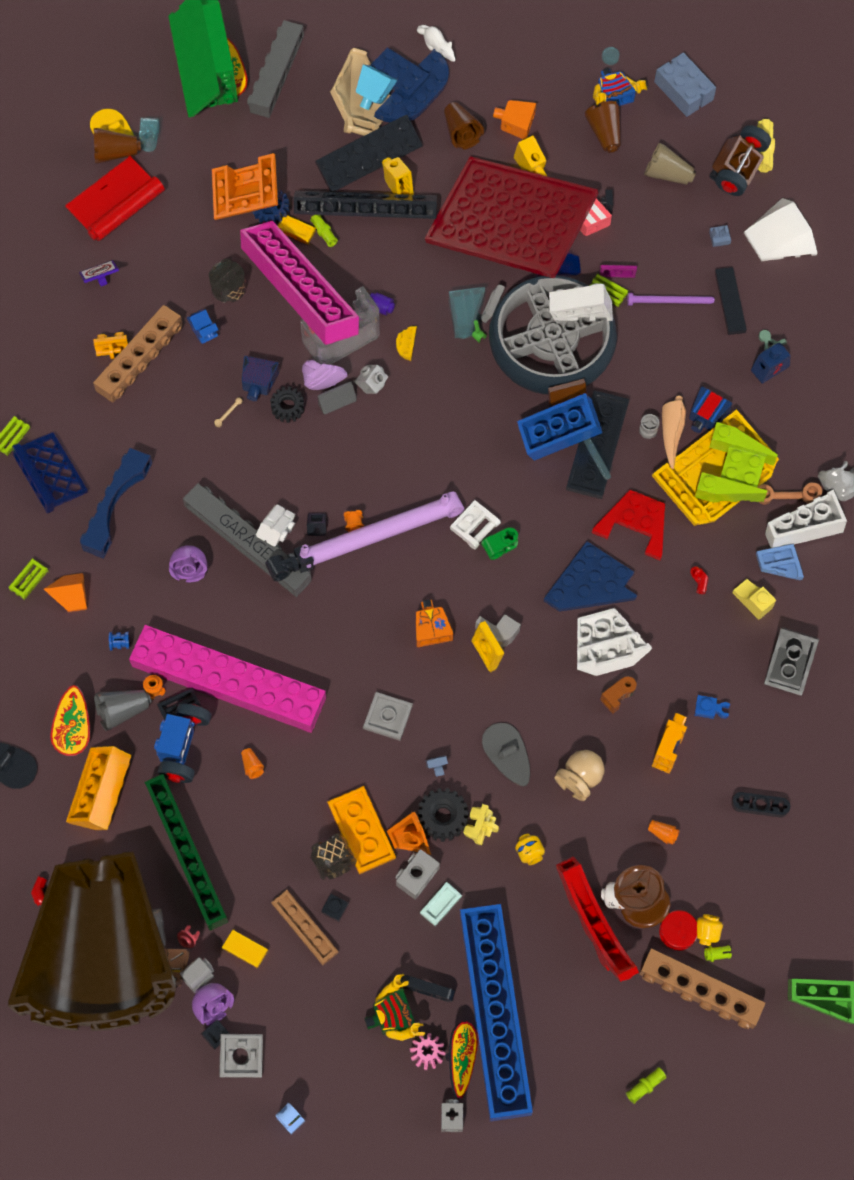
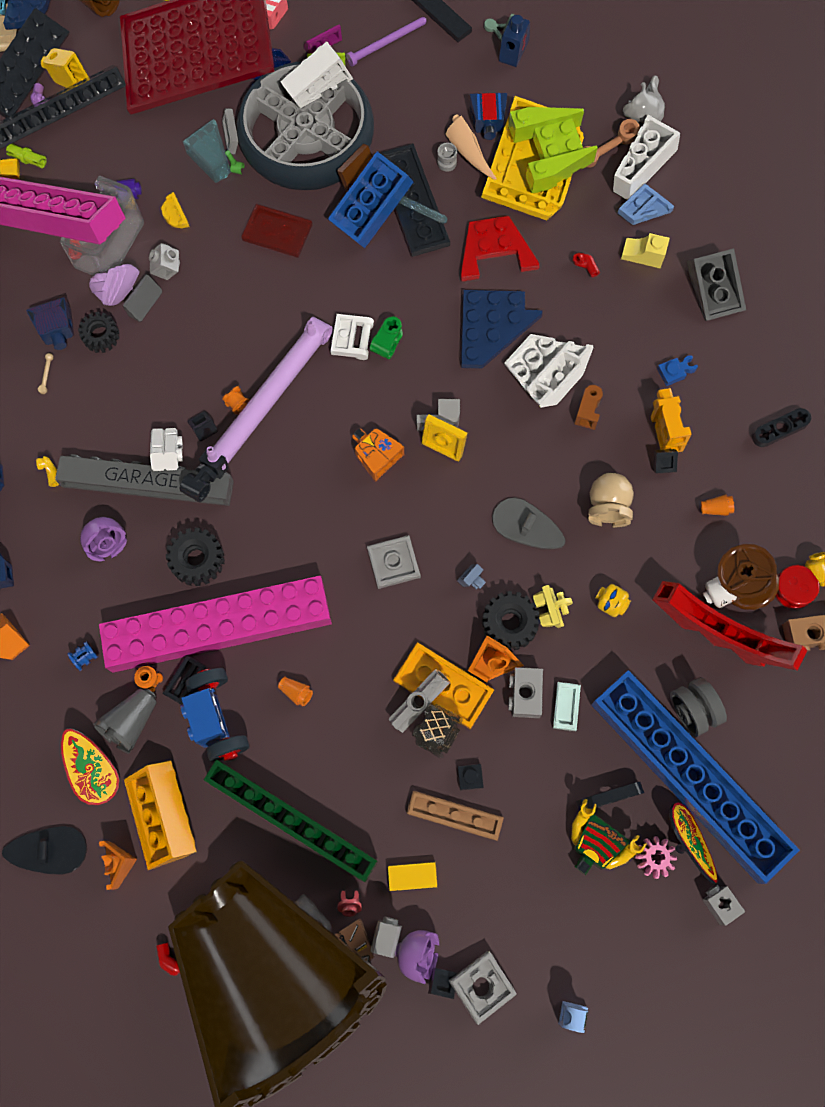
camera: 30 degrees left, 5 degrees up
(48, 803) = (117, 864): none -> orange slope
(184, 490) = (51, 470): none -> yellow arm
(243, 606) = (187, 543): none -> black tyre
(345, 824) = (429, 690): none -> light grey piece
(362, 187) = (37, 94): none -> medium lavender arm
(475, 405) = (277, 230): none -> clear red tile
(534, 965) = (698, 706): none -> dark grey wheel
(647, 771) = (665, 461): none -> black plate

